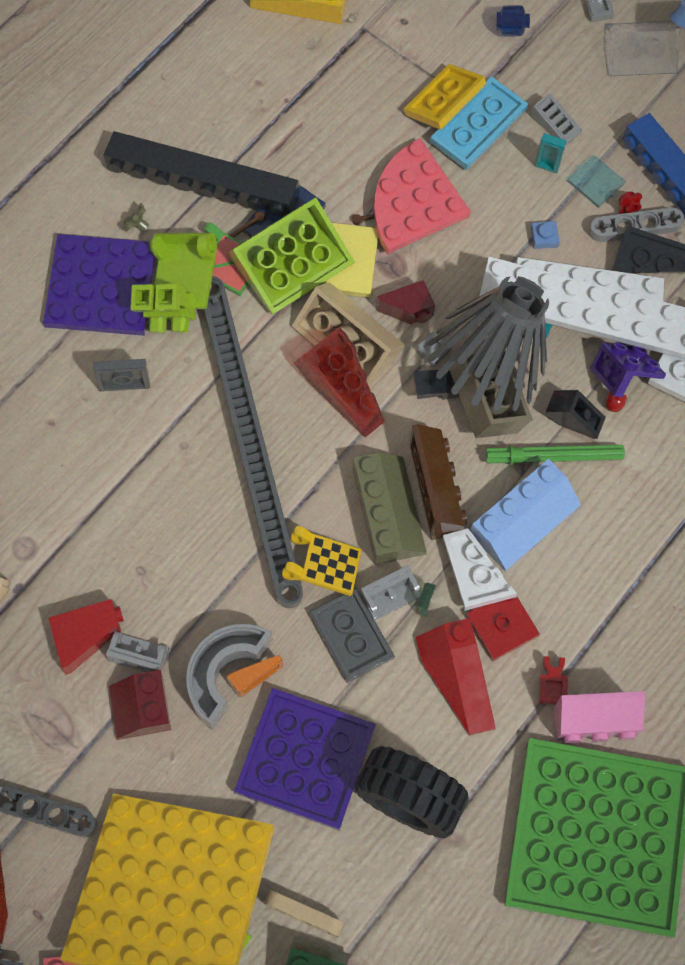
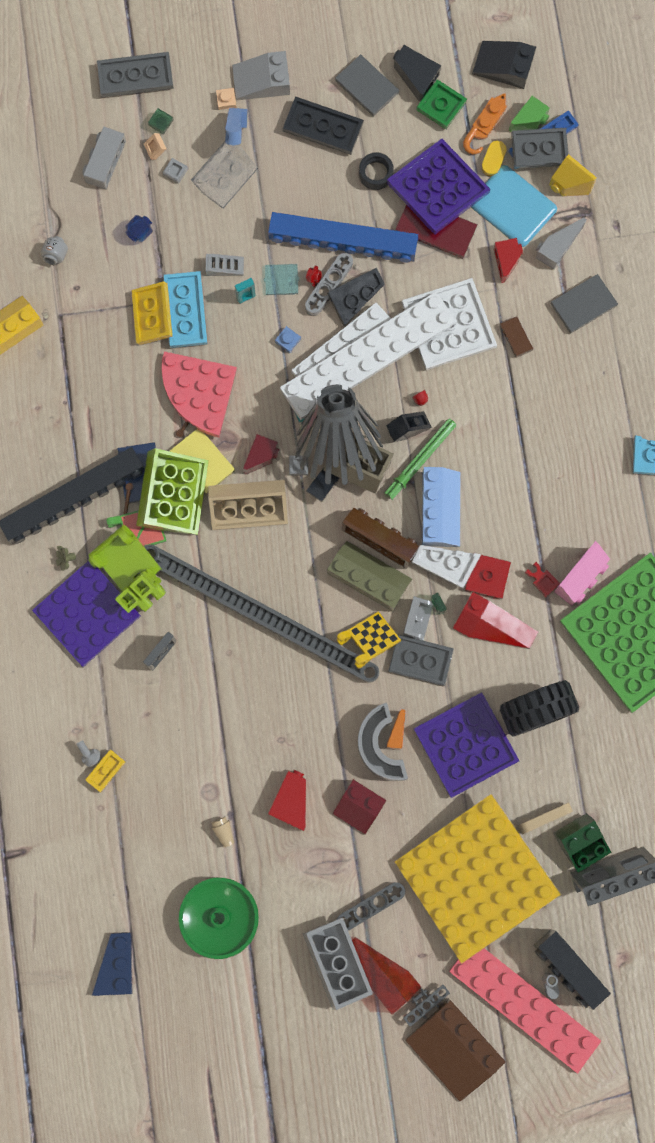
camera: 45 degrees left, 10 degrees up
(136, 653) = (328, 782): light grey hinge -> none
(338, 377) = (266, 532): clear red wedge -> none
(618, 363) = (406, 375): dark purple bracket -> none

